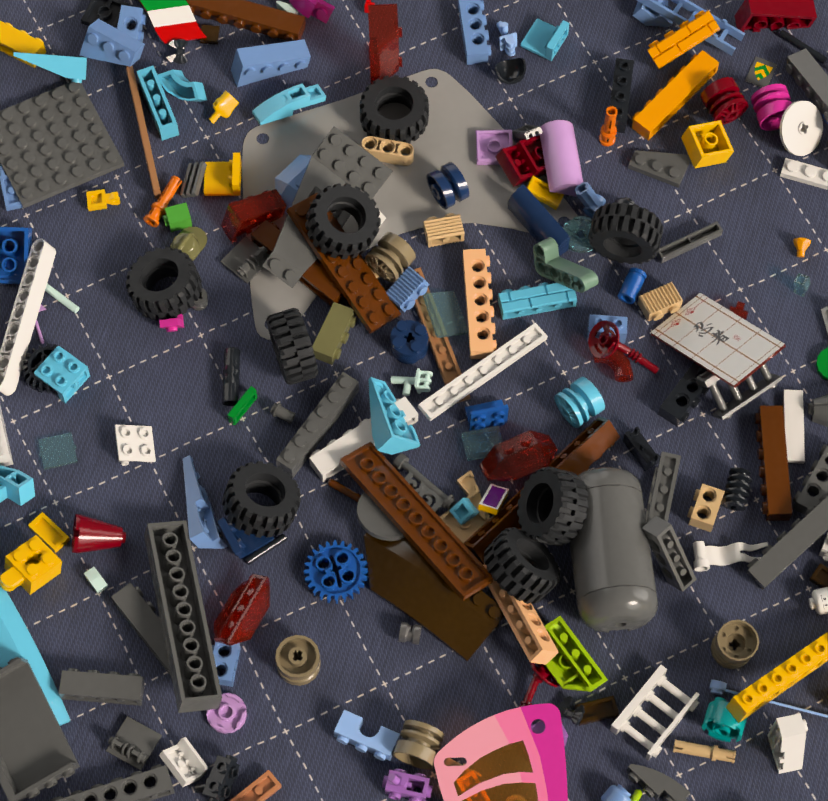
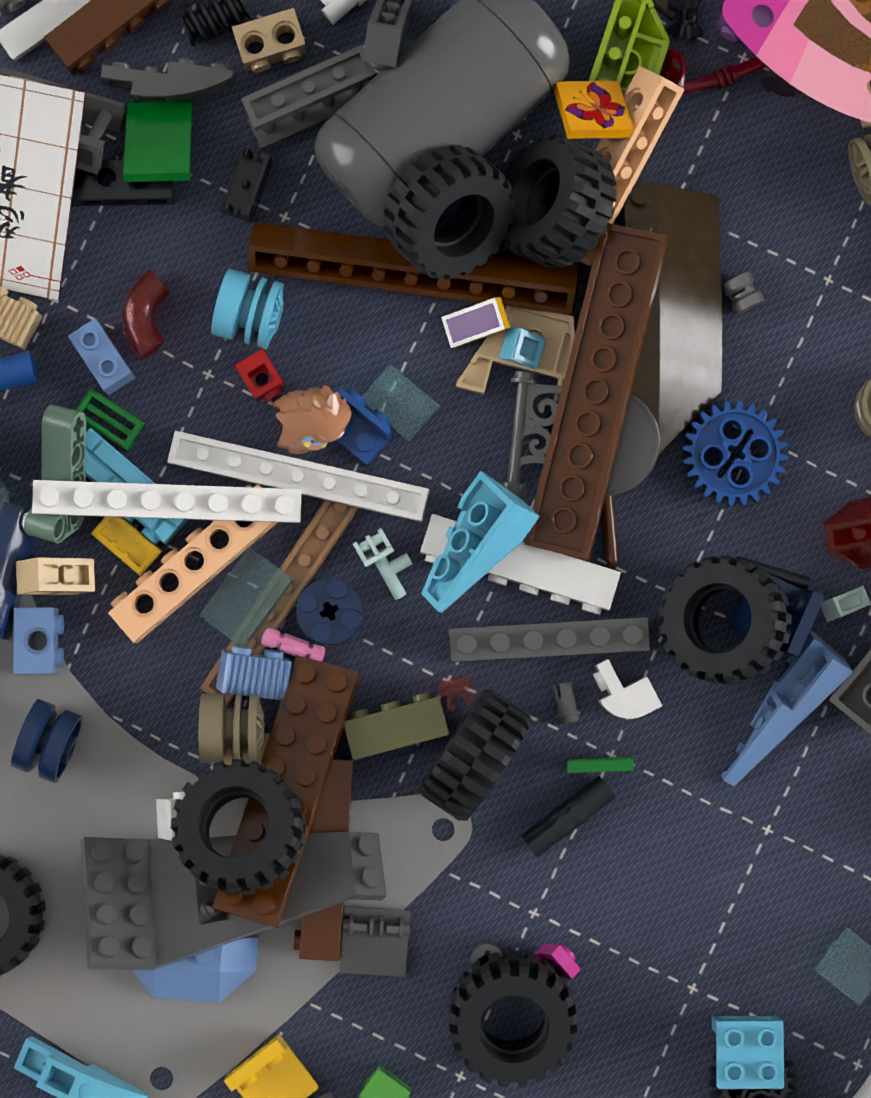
camera: 130 degrees left, 20 degrees up
(134, 444) = (765, 866): white hinge -> none
(191, 241) = (412, 1045): olive piece -> none
(222, 572) = (845, 603): none -> light aqua piece
(252, 211) = (298, 988): clear red wedge -> none
(262, 437) = (627, 702): none -> white brick
(330, 370) = (456, 688): none -> clear red tile
(396, 150) = (49, 859): tan beam -> none
(410, 314) = (292, 645): none -> bright pink axle
(443, 230) = (117, 698): tan brick -> none
(493, 206) = (28, 623): none -> medium blue brick
(505, 389) = (311, 419): none -> nougat head
(511, 281) = (127, 543): none -> yellow plate
(514, 302) = (166, 501): none -> white plate
(518, 456) = (388, 331): clear red wedge -> none
(519, 238) = (55, 576): none -> tan brick
(543, 383) = (258, 365): none -> red brick
(552, 611) = (593, 109): none -> light orange tile
(585, 319) = (132, 434): none -> green tile
(609, 341) = (127, 333): dark red dish -> none
(692, 420) = (158, 141): none -> green tile
(718, 448) = (182, 82): none -> dark grey slope

